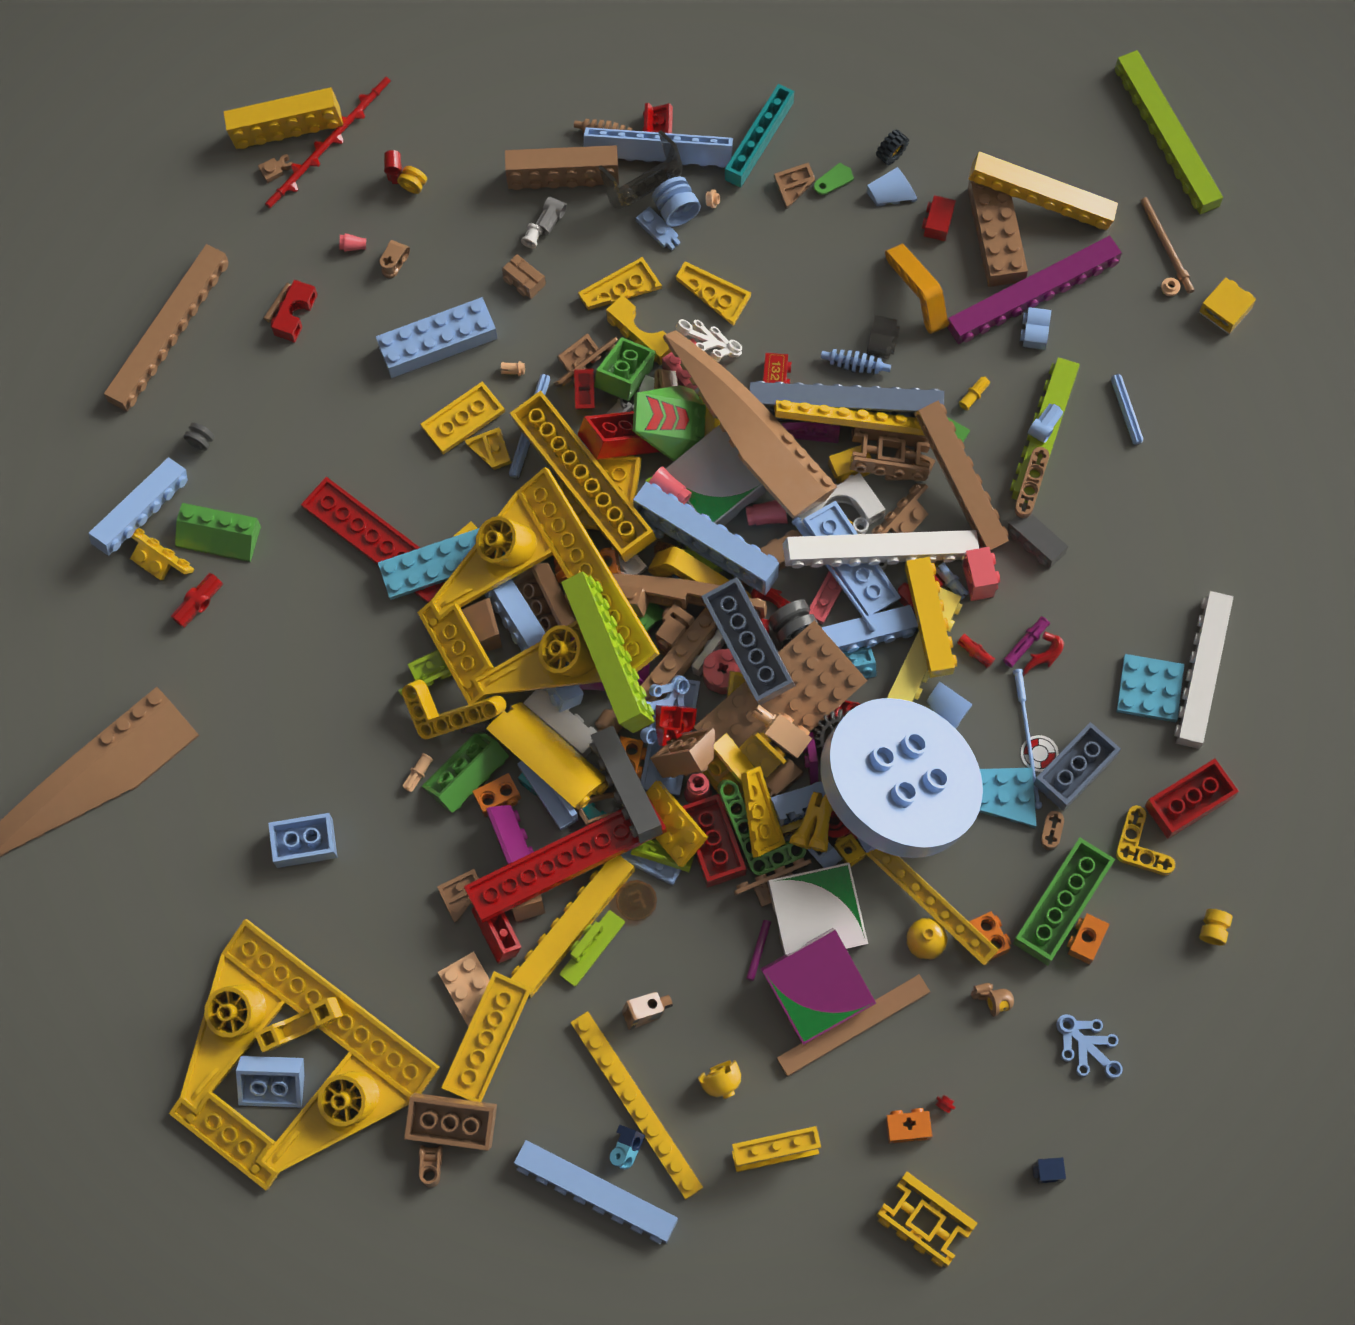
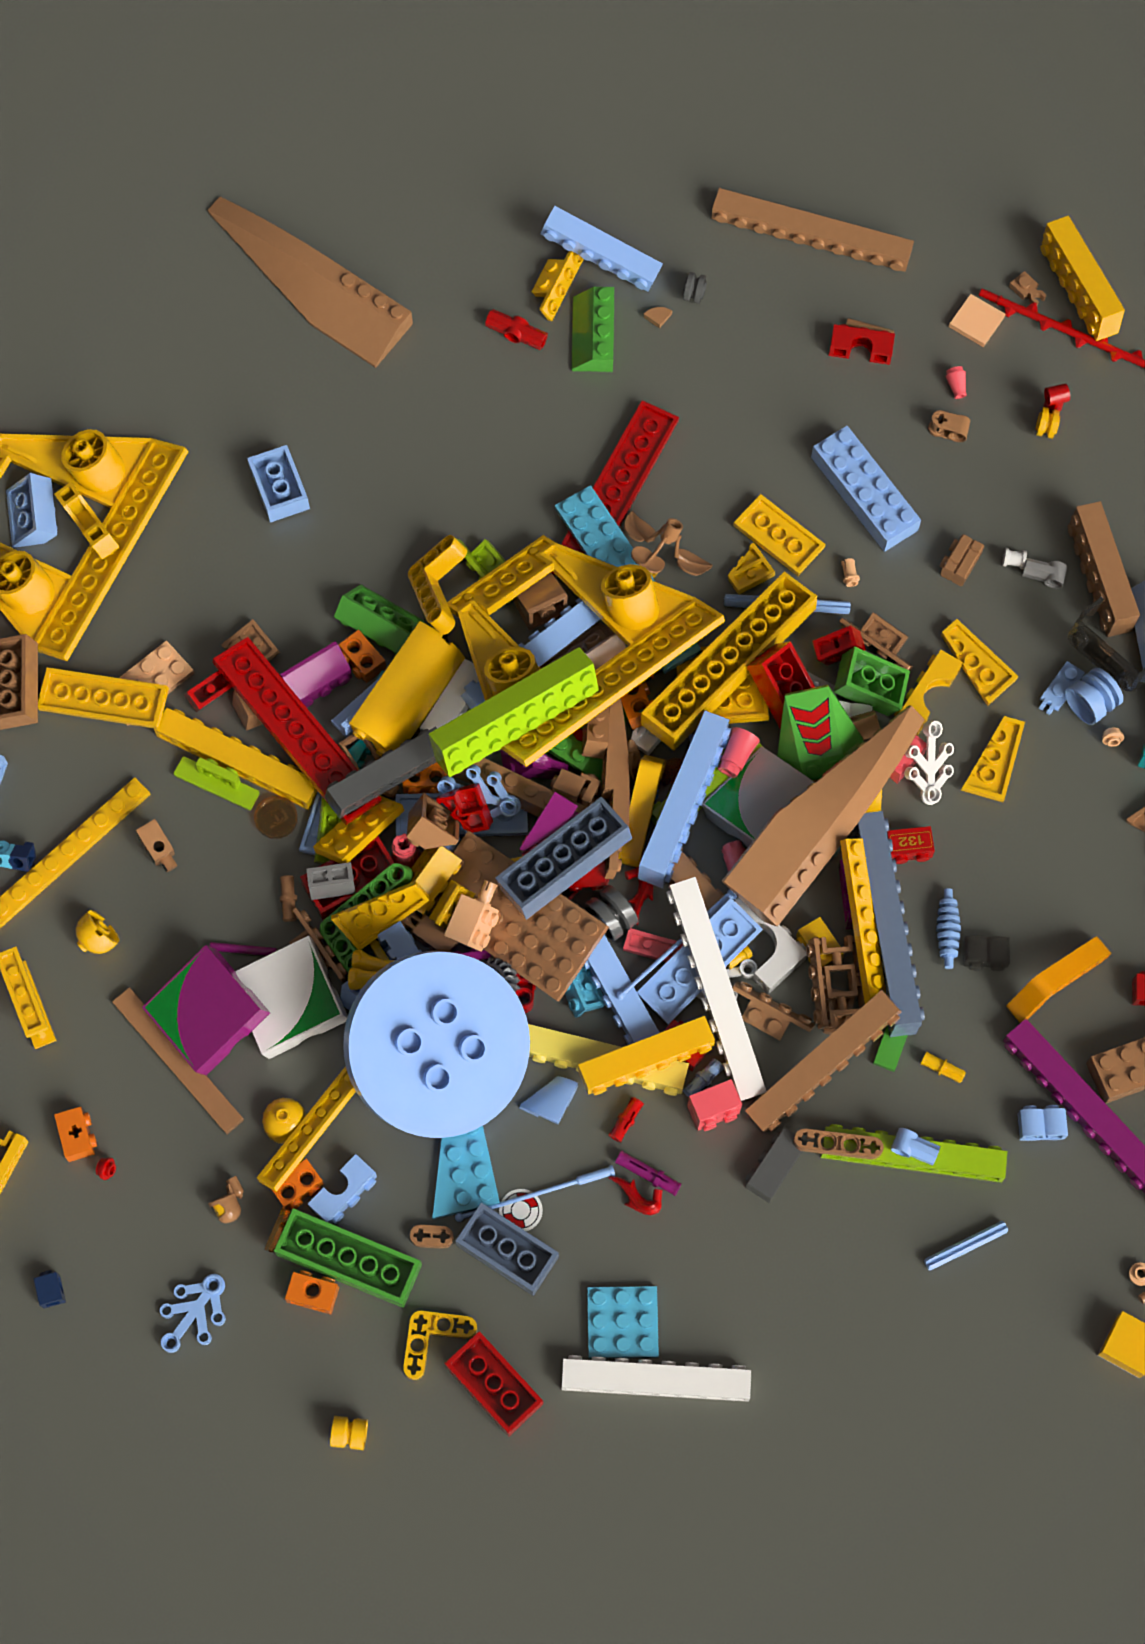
camera: 75 degrees right, 0 degrees up
(216, 475) = (658, 315): none -> medium nougat tile
(294, 214) = (977, 320): none -> light nougat tile
(417, 772) = (373, 576): light nougat axle -> none
(471, 496) = (640, 531): none -> medium nougat plant
(709, 651) = (553, 817): none -> magenta slope
(719, 901) = (288, 898): none -> medium nougat pin
(720, 851) = (331, 881): none -> light grey hinge
(992, 882) = (359, 1178): none -> light blue arch
(1030, 959) = (277, 1230): none -> clear orange tile

